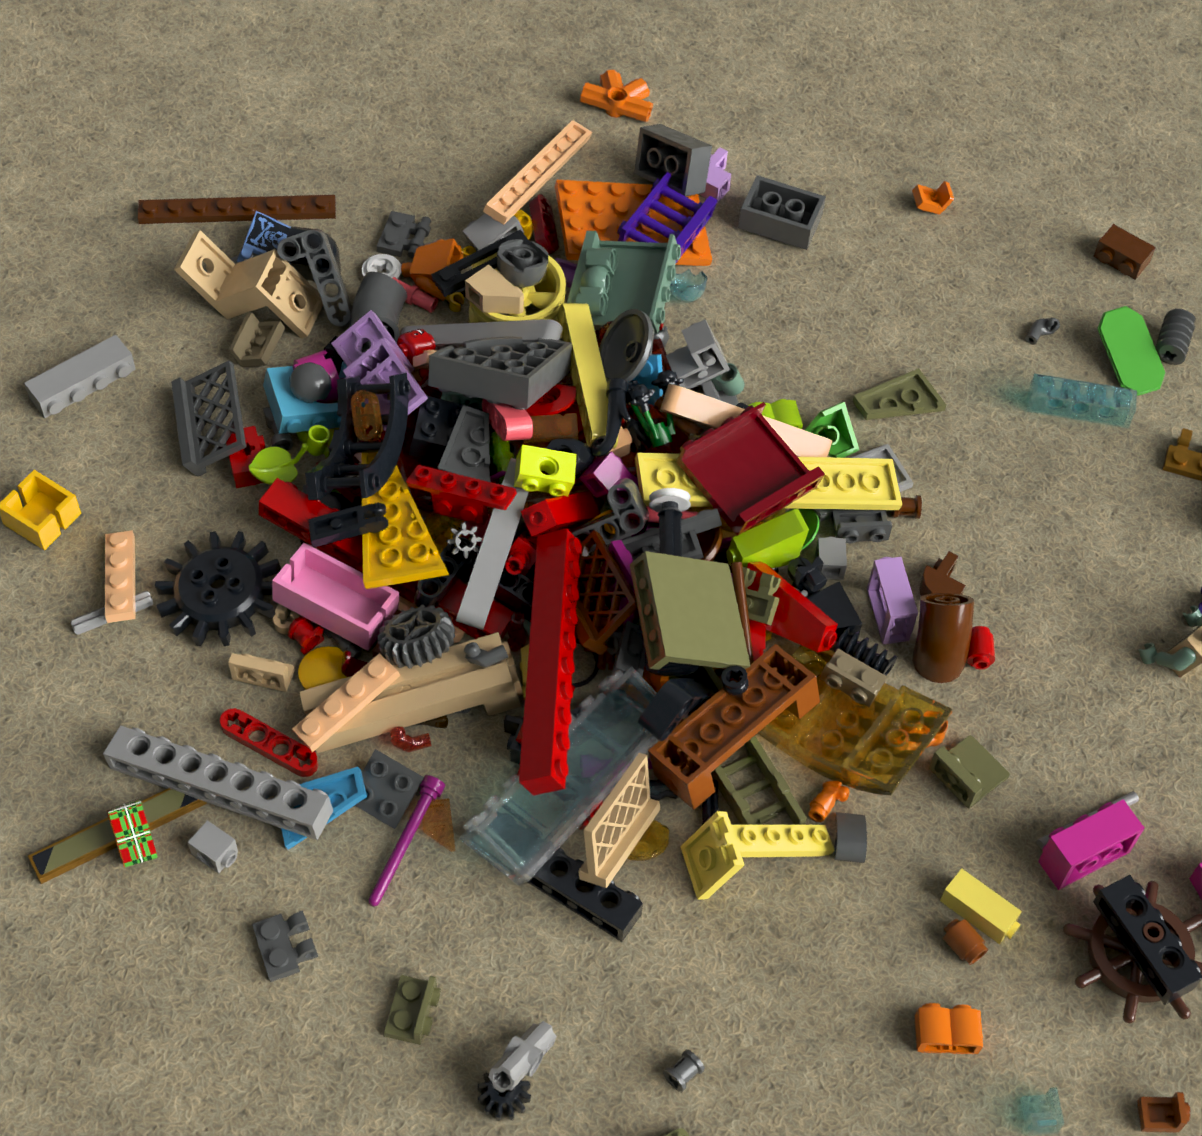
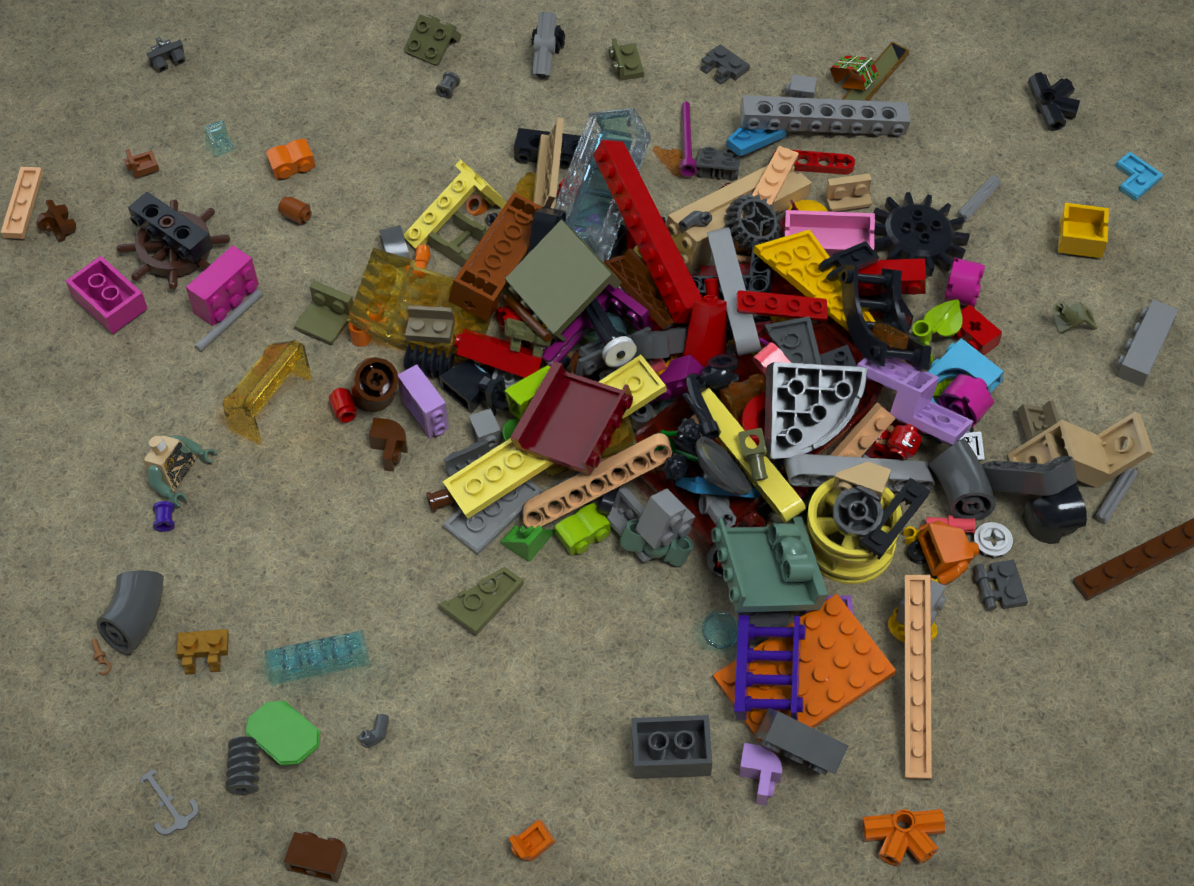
camera: 160 degrees right, 0 degrees up
(120, 576) = (992, 216): light nougat plate -> none
(134, 431) = (1072, 316): none -> olive bracket
(191, 424) = (1035, 339): dark grey fence -> none
(220, 500) = (964, 282): none -> dark pink brick
(262, 236) = (1106, 520): flag -> none
(310, 382) = (959, 369): dark grey hair -> none
(472, 539) = (756, 274): light grey gear -> none
(543, 223) = (895, 646): dark red beam -> none
(557, 464) = (725, 332): neon yellow brick -> none
(587, 346) = (754, 455): none -> olive bracket
(737, 673) = (507, 258): black bush -> none
(981, 906) = (290, 232): light yellow brick -> none
(1064, 672) = (261, 383): none -> clear yellow windscreen

